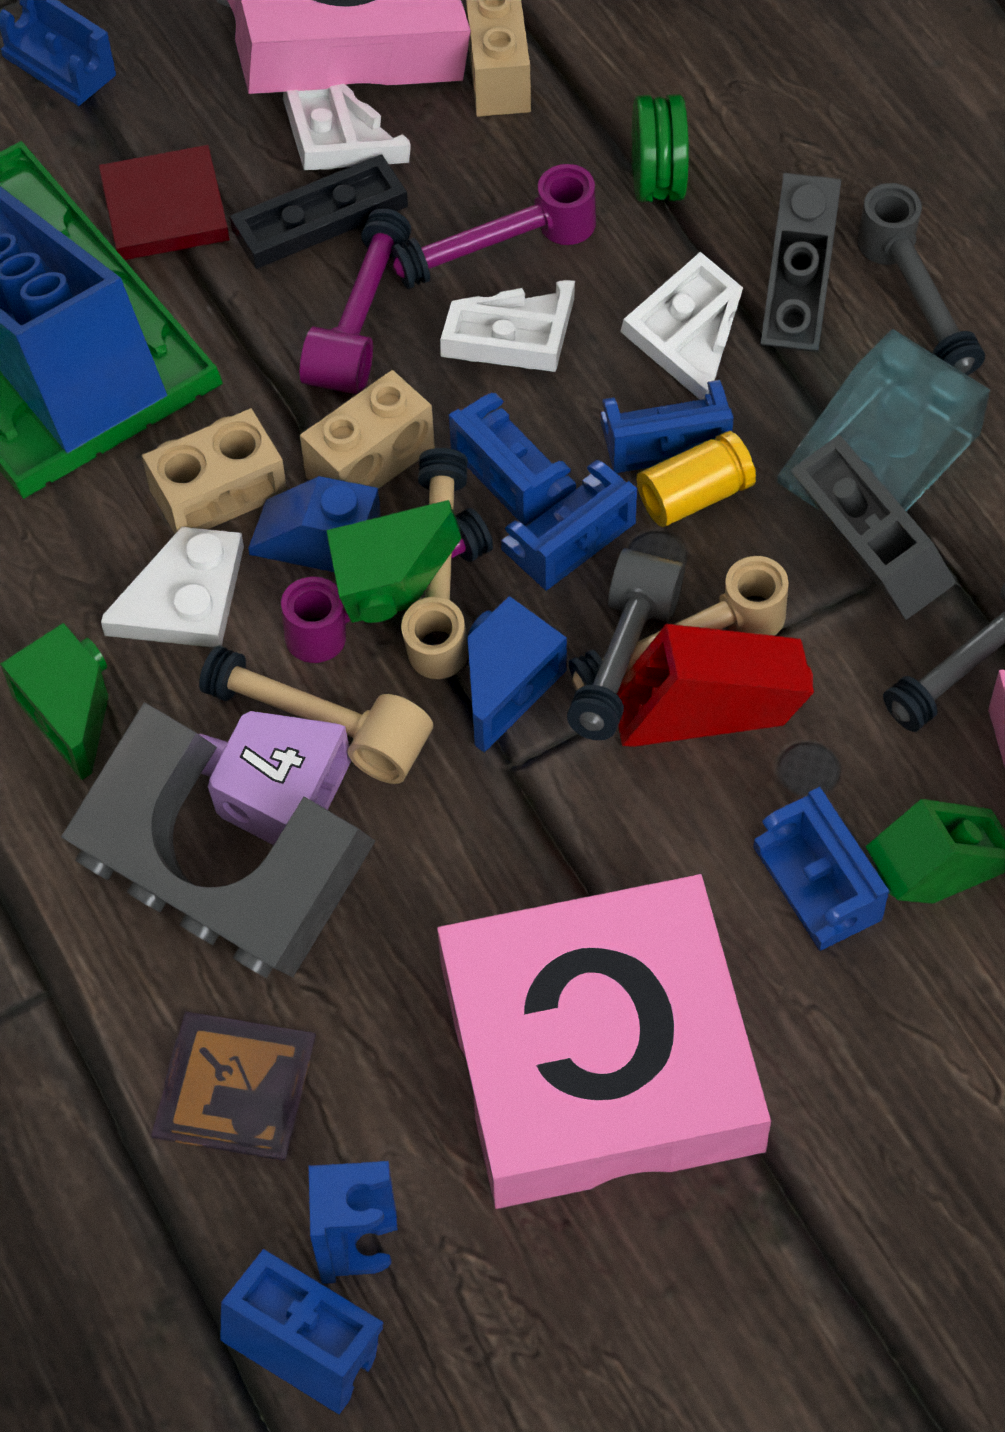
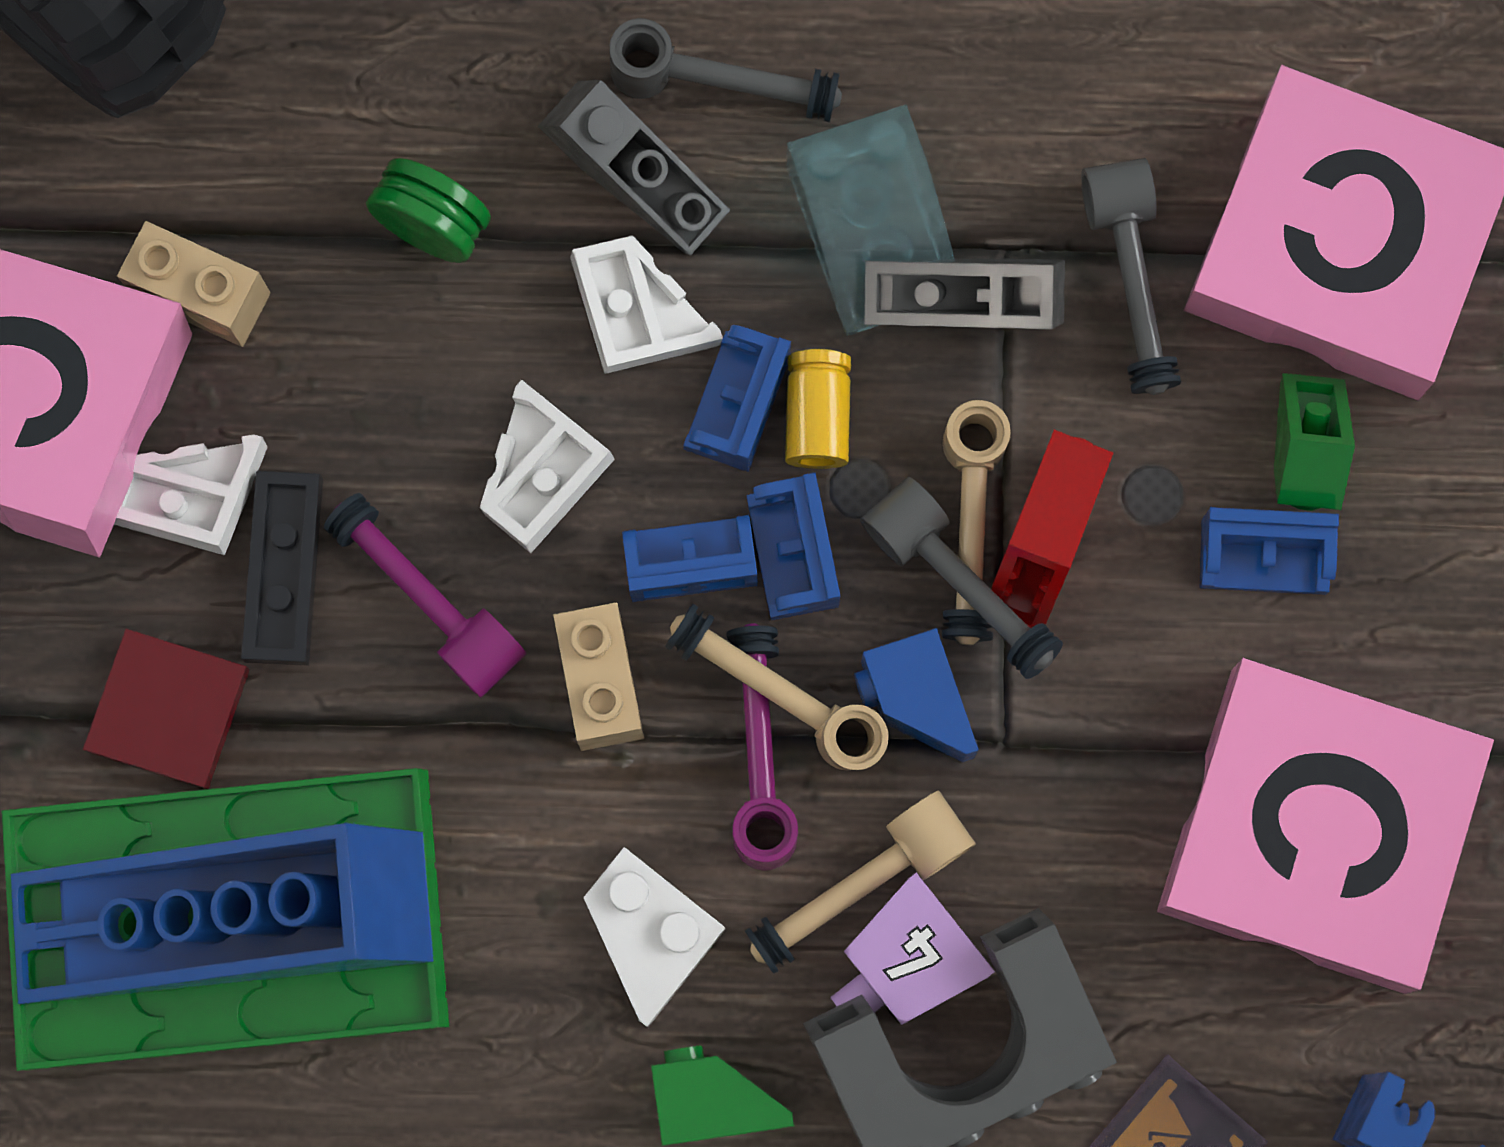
camera: 60 degrees left, 20 degrees up
(226, 471) = (560, 836): tan brick -> none
(297, 520) = (661, 776): blue slope -> none
(391, 559) = (775, 741): green slope -> none
(562, 211) = (405, 514): magenta piece -> none

